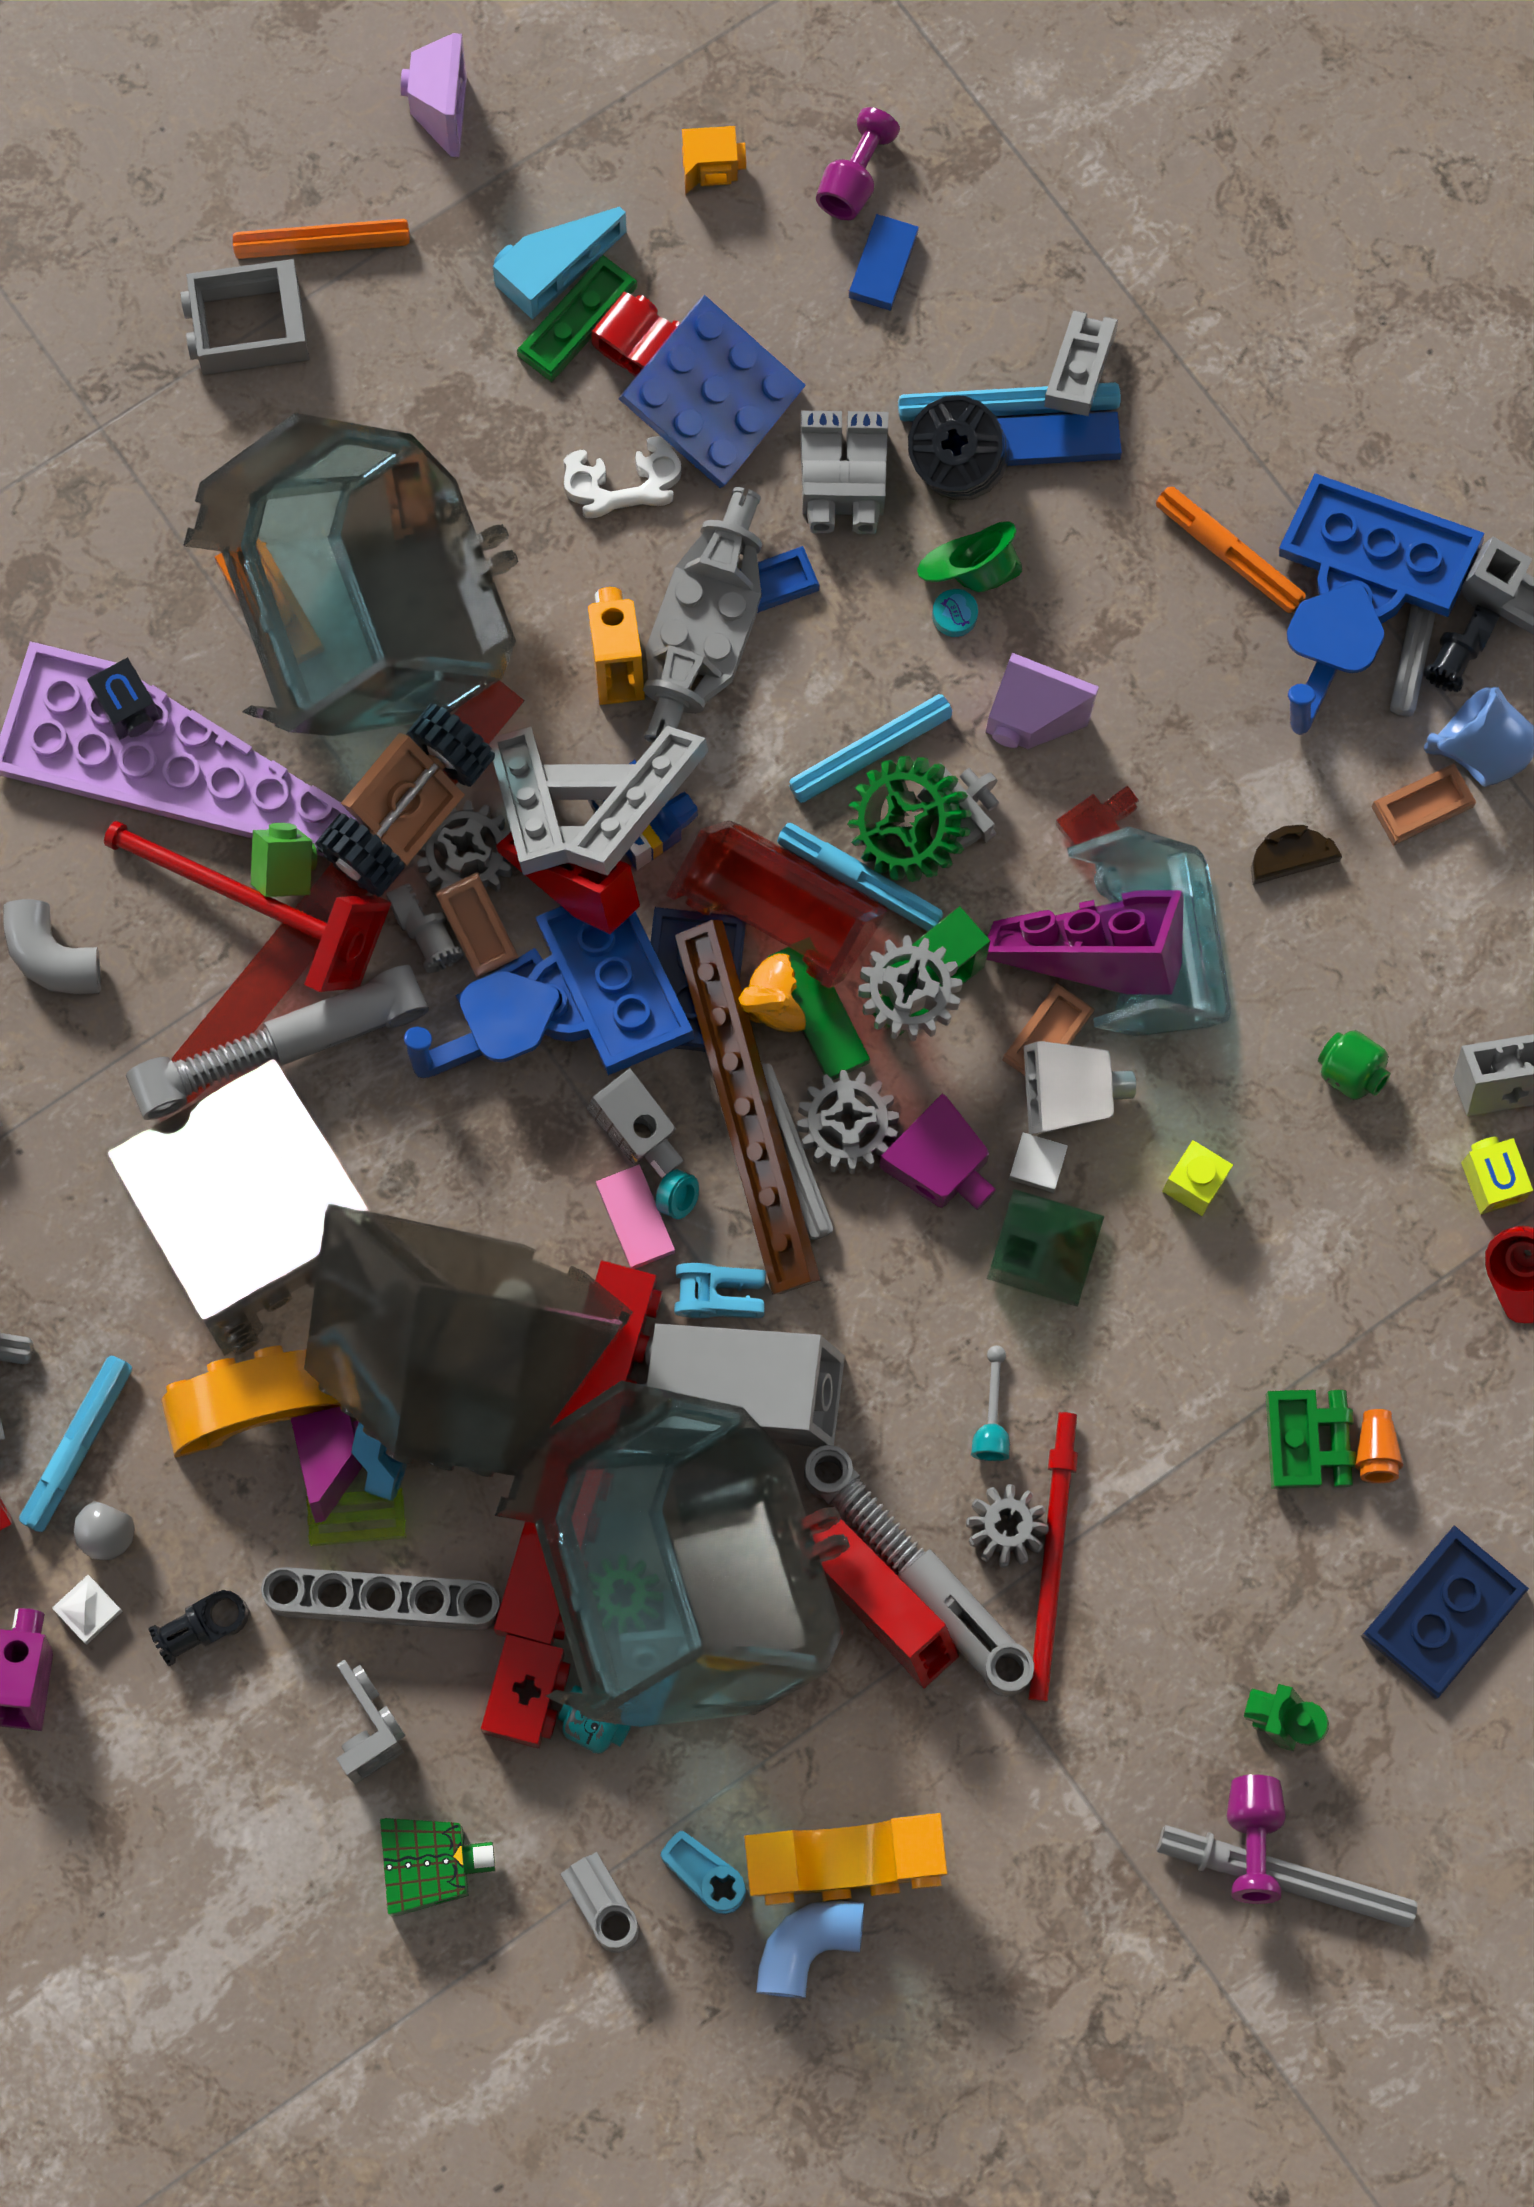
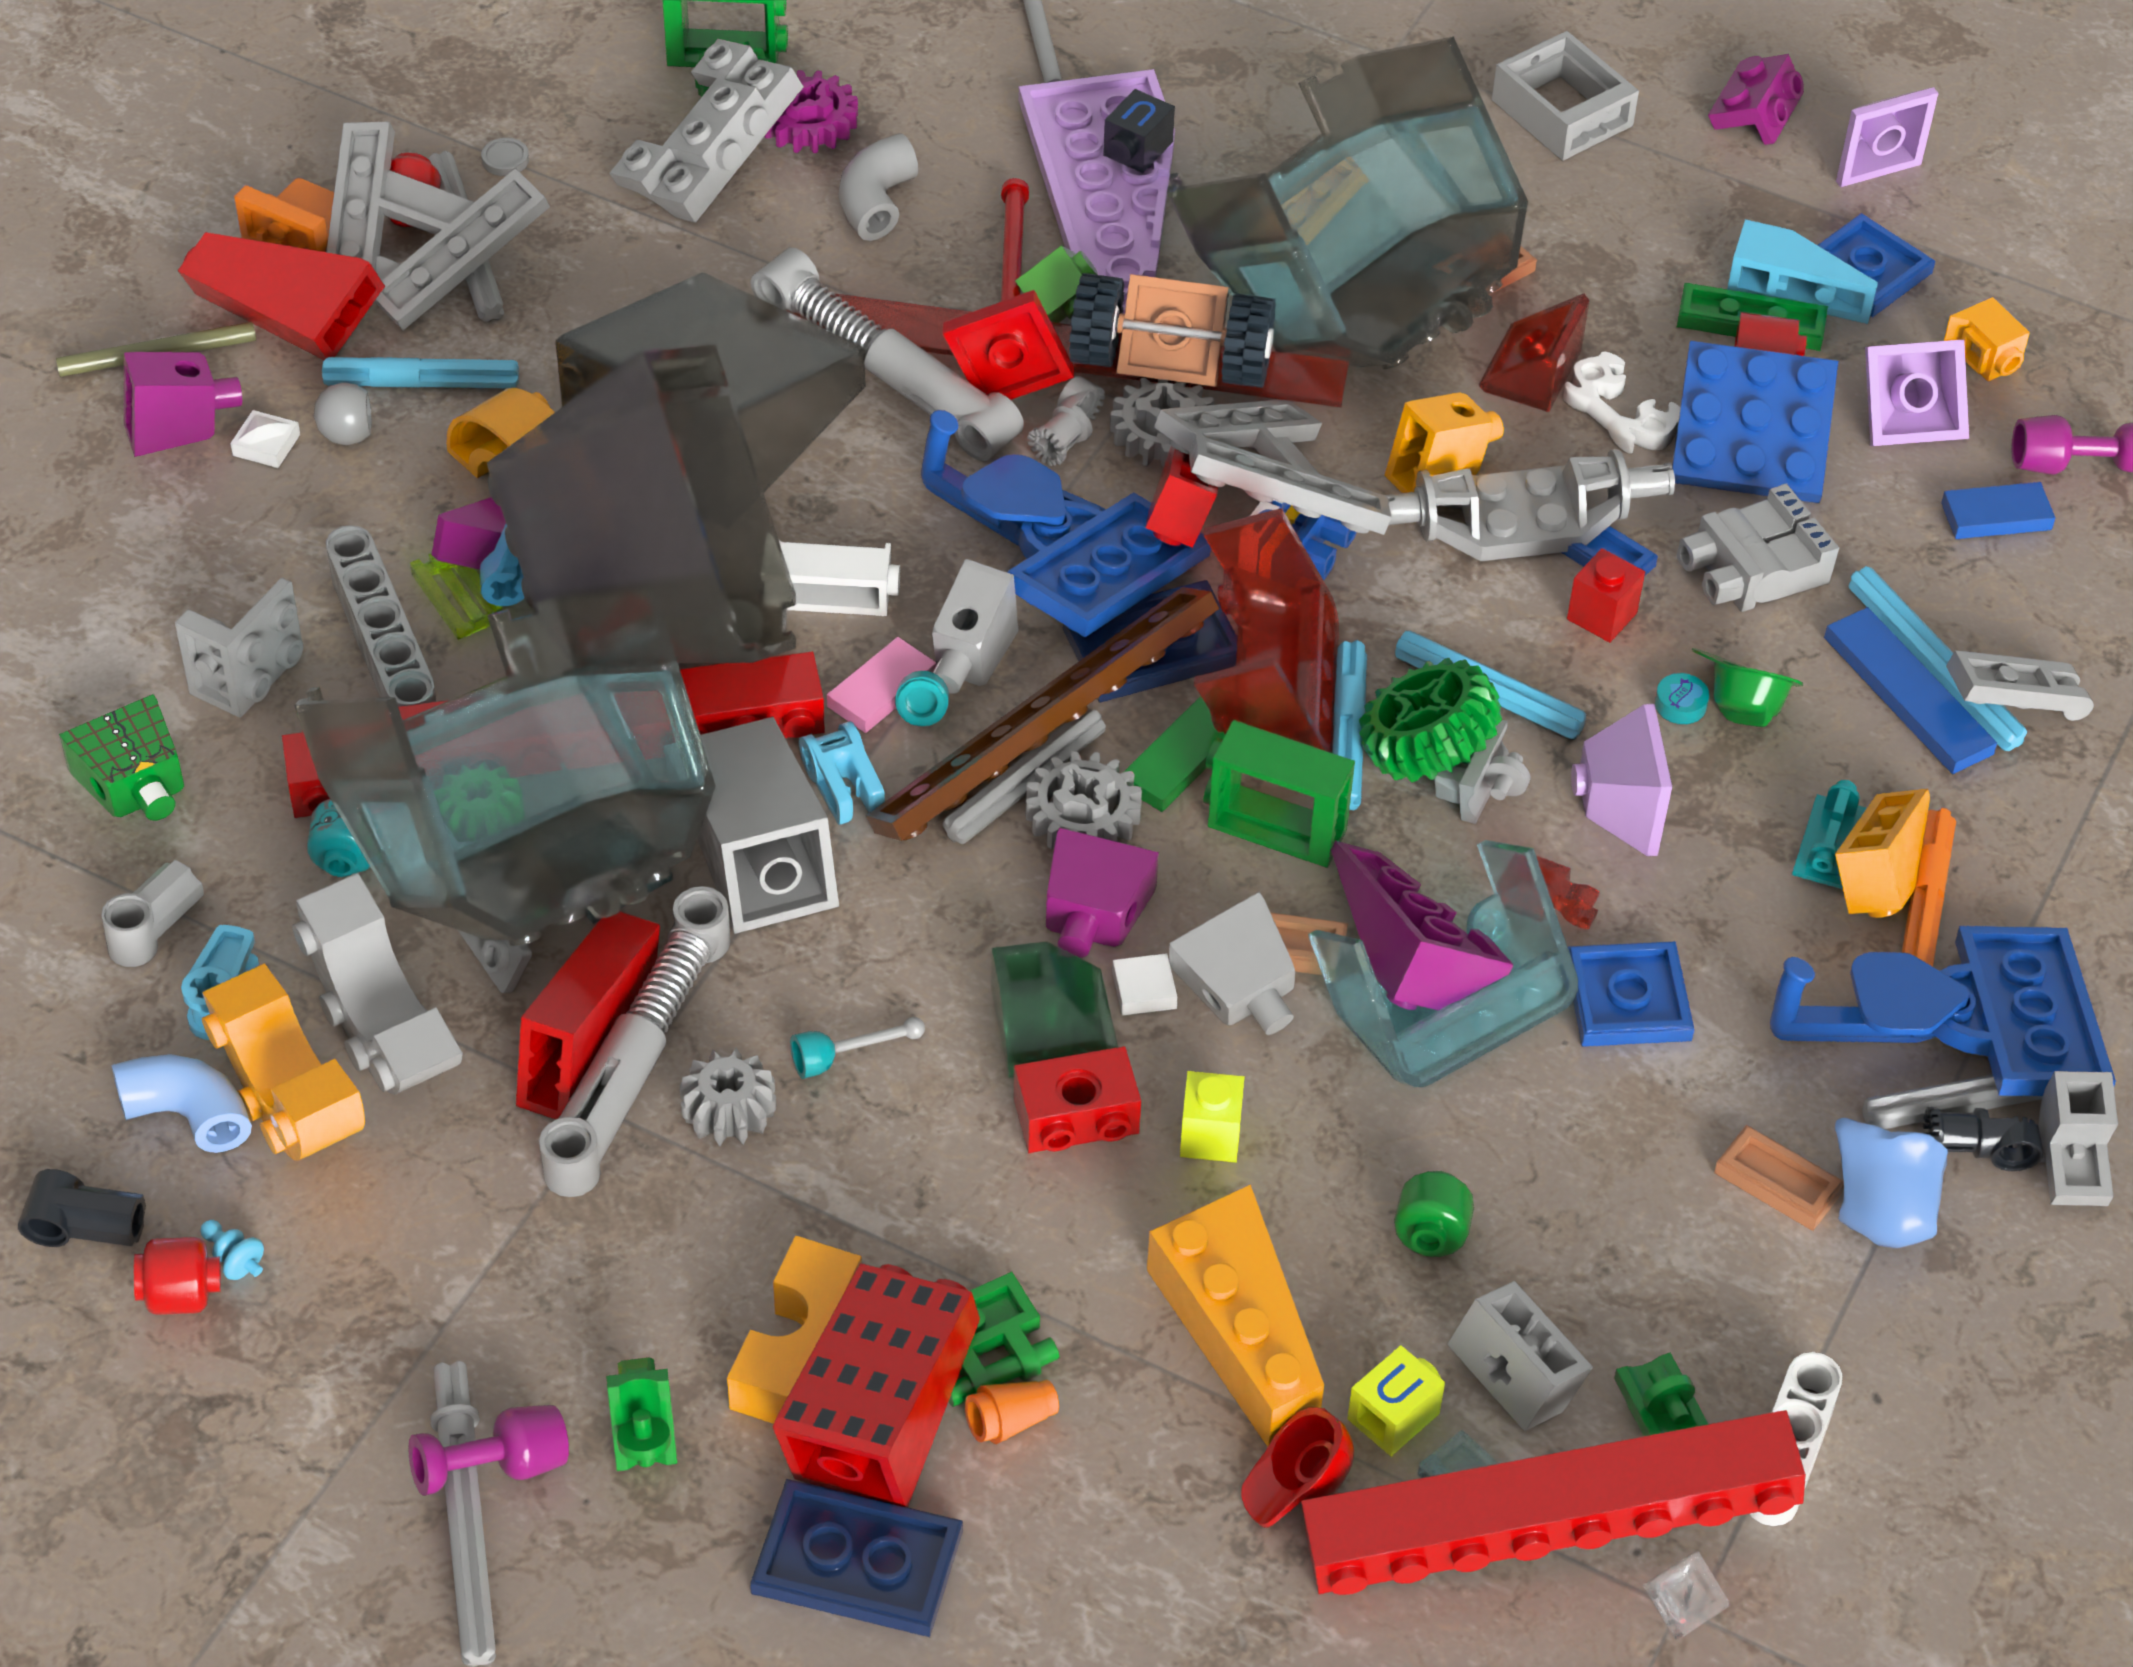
camera: 65 degrees right, 25 degrees down
(197, 1626) = (294, 510): black connector -> none
(321, 238) = (1684, 123): orange axle -> none
(329, 160) = (1759, 94): none -> magenta bracket
(476, 924) = (1097, 449): nougat tile -> none
(510, 1194) = (841, 578): none -> white window
(542, 514) = (1538, 355): none -> clear red slope
(563, 186) = (1881, 257): none -> blue tile
(739, 244) = (1917, 392): none -> lavender slope
(770, 996) = (1167, 676): light orange hair -> none
(813, 1759) = (368, 990): none -> light grey brick
(835, 611) = (1605, 595): none -> red brick
(879, 2073) = (65, 1209): none -> black piece
(926, 995) = (1234, 737): light grey gear -> none
(965, 1961) = (236, 1252): none -> medium azure hair
(981, 459) = (1845, 610): black wheel -> none
(986, 2013) = (176, 1275): none -> head
(1061, 1463) = (827, 1127): red bar -> none
(1118, 1292) = (1050, 1089): none -> red brick
(1145, 586) = (1826, 830): none -> teal hinge
(1184, 555) = (1883, 853): none -> light orange slope
(1215, 812) = (1631, 994): none -> blue tile
(1223, 1536) = (808, 1293): none -> light orange arch
(1290, 852) = (1636, 1076): dark brown tile -> none
(1336, 1531) = (877, 1384): none -> red slope
(1373, 1244) = (1238, 1307): none -> light orange wedge

